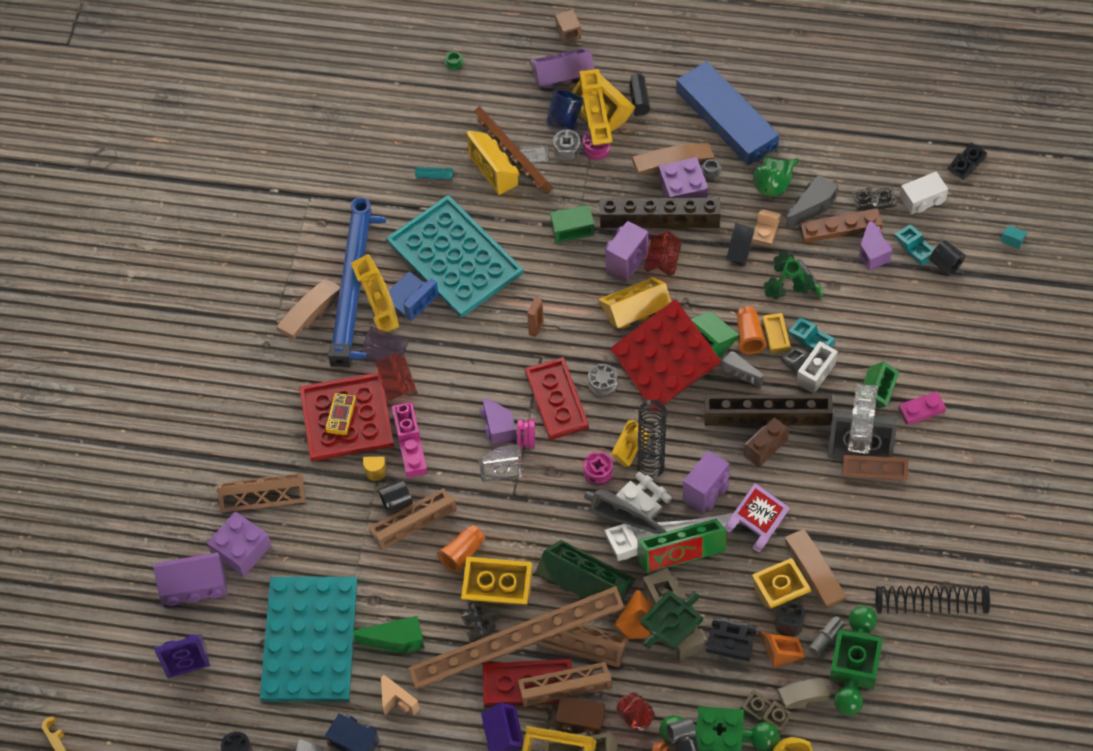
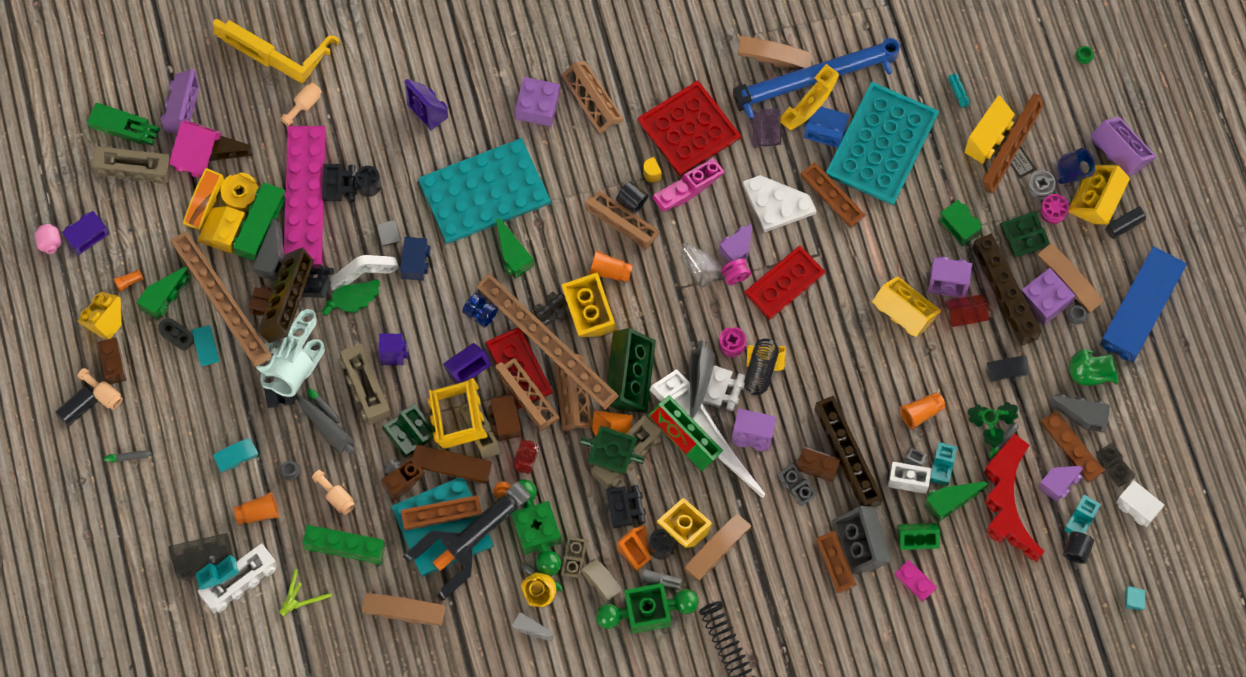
camera: 60 degrees right, 10 degrees up
(190, 579) = (489, 81): medium lavender slope -> none
(340, 414) = (685, 122): tile -> none
(394, 694) = (461, 271): light nougat slope -> none
(396, 376) = (741, 149): clear red panel -> none
(446, 693) = (480, 310): none -> clear blue wheel
(467, 372) = (777, 203): none -> white plate
(486, 319) = (832, 195): none -> dark orange plate
(535, 316) = (848, 231): dark orange tile -> none
(568, 26) = (1170, 132): medium nougat brick -> none
(595, 107) = (1083, 190): yellow slope -> none
(603, 380) = (816, 311): light grey wheel -> none
(609, 178) = (1024, 234): none -> dark green slope
(665, 354) = (861, 350): red plate -> none
(715, 332) = (896, 377): slope -> none
(741, 369) = (882, 410): light grey slope -> none
(759, 513) = (748, 486): flag -> none
(766, 228) = (1039, 384): light nougat slope -> none
(776, 333) = (933, 433): yellow tile -> none
(779, 472) = (796, 484): none -> dark grey slope
(853, 346) = (949, 499): none -> green slope
(862, 418) = (880, 526): clear arch -> none
(870, 300) = (1001, 499): none -> red arch
(968, 161) = (1196, 531): black slope -> none

